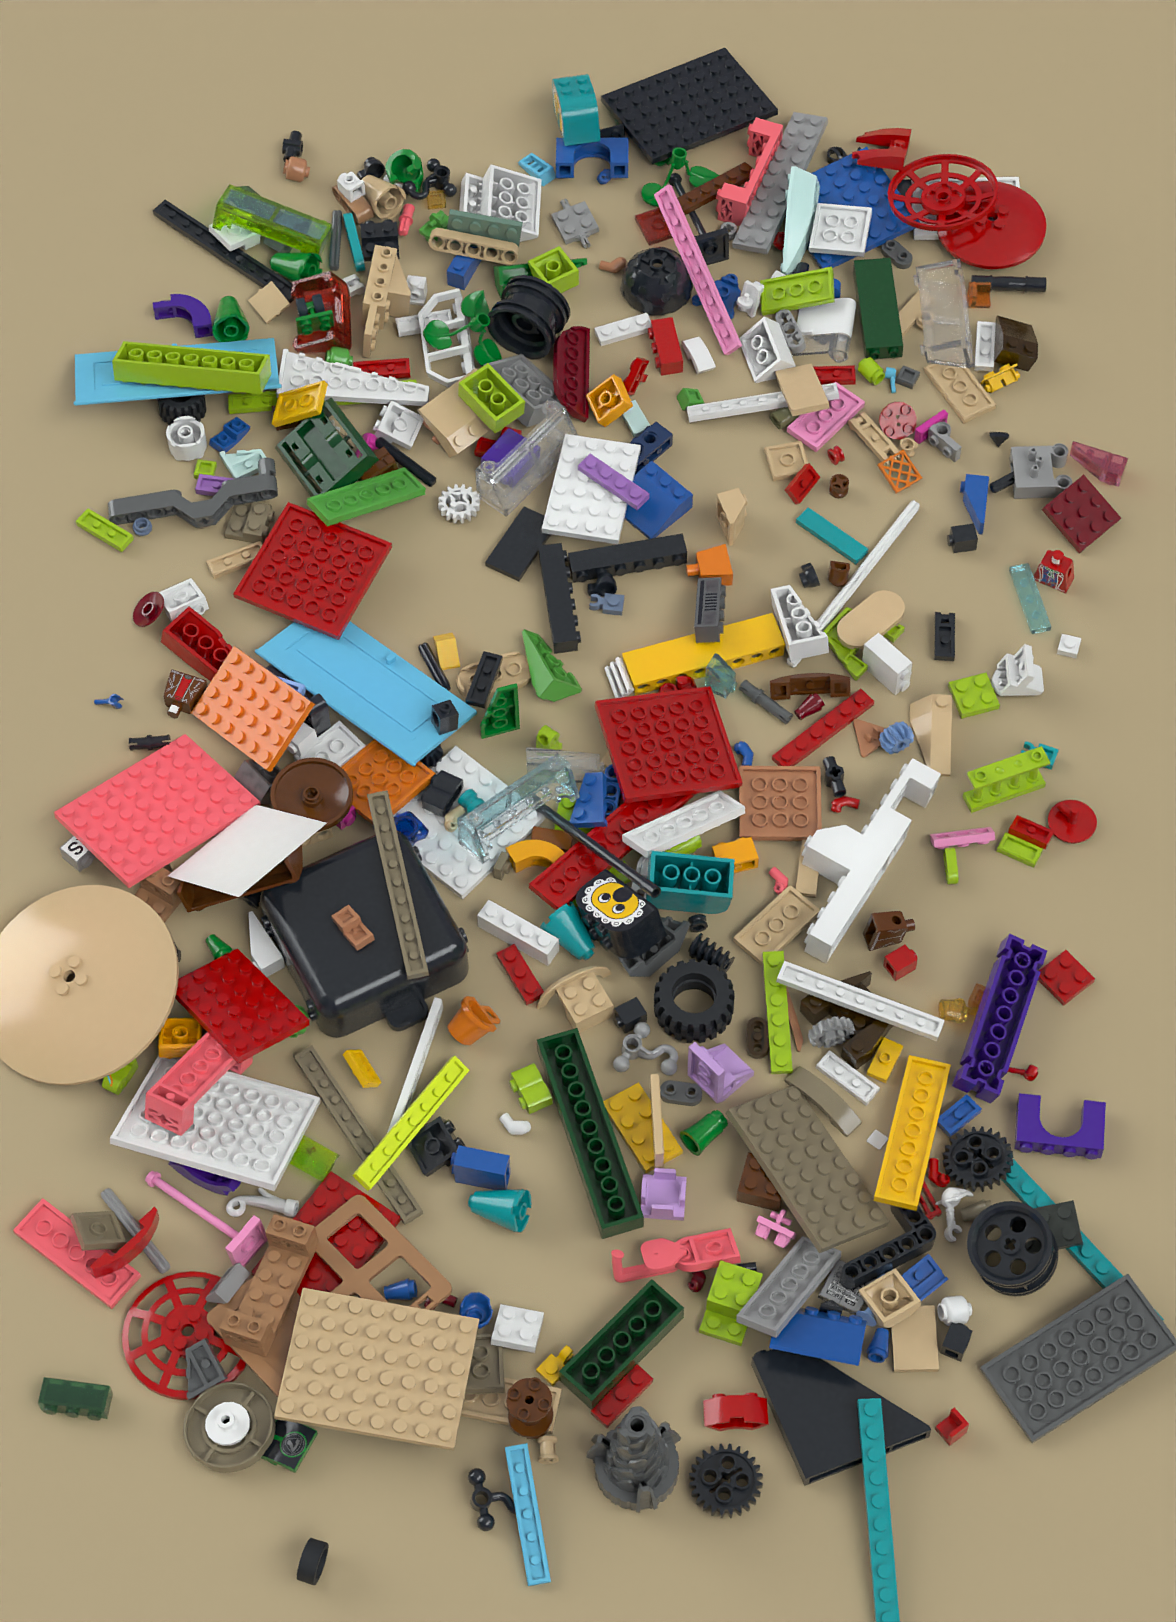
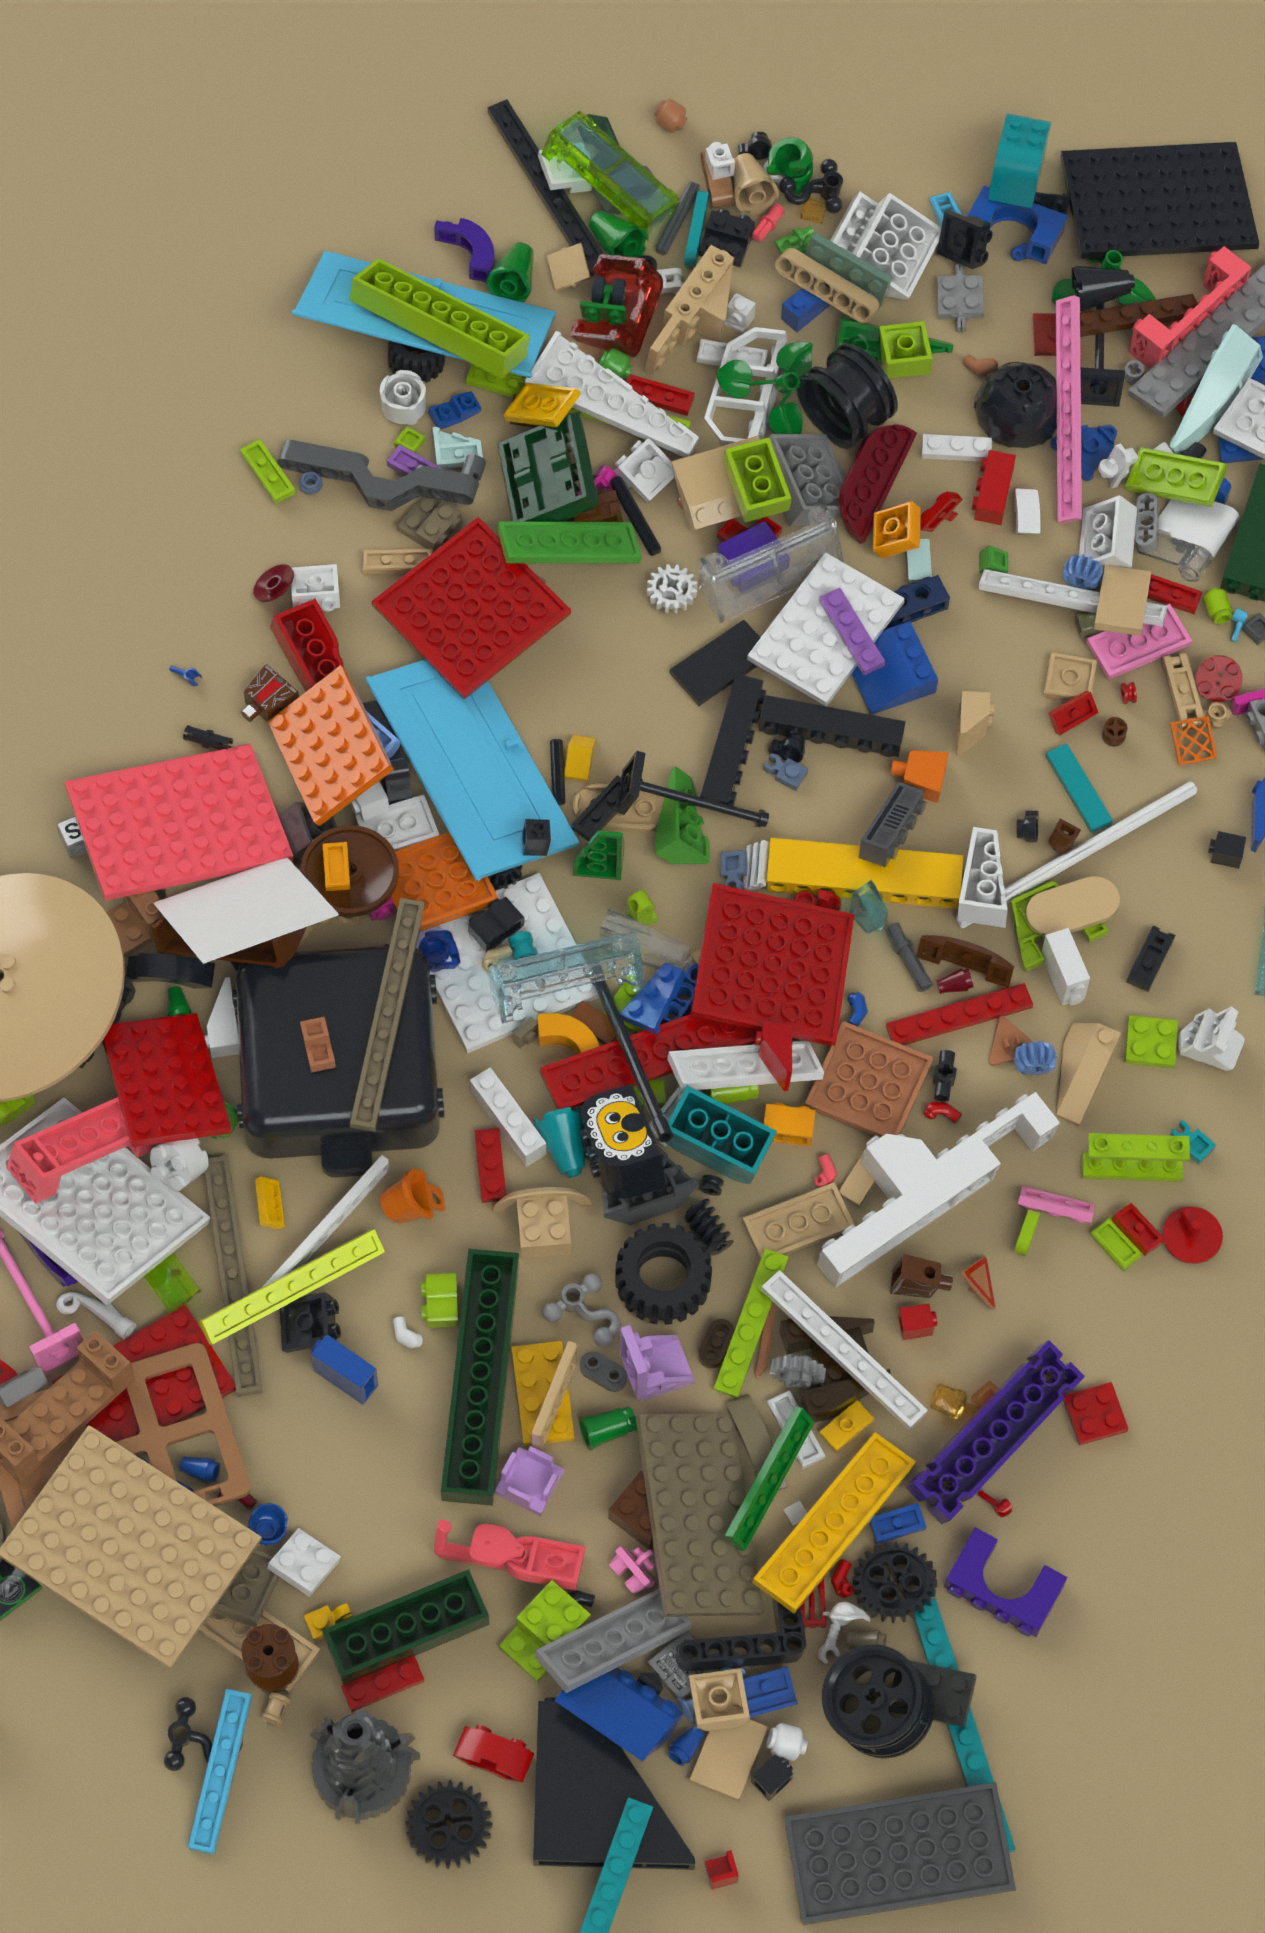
camera: 20 degrees right, 5 degrees up
(178, 1037) = (87, 1088): light orange brick -> none
(203, 921) = (171, 969): none -> black arch
(277, 1064) = (178, 1162): none -> white brick
(293, 145) = (680, 85): black axle -> none
(301, 794) = (336, 866): none -> light orange tile
(501, 652) = (632, 783): none -> black tile
(503, 1207) = (349, 1422): teal cone -> none
(560, 179) = (964, 239): none -> black plate
(602, 685) = (733, 867): none -> sand blue plate
(629, 1014) = (587, 1260): black brick -> none
(677, 174) = (1100, 285): none -> black cone
(697, 1281) = (521, 1591): dark red arm -> none
(703, 803) = (776, 1051): none -> red slope
(761, 381) = (1082, 572): none -> medium blue gear
(848, 1119) = (769, 1479): none -> green plate
(930, 911) = (979, 1279): none -> nougat piece

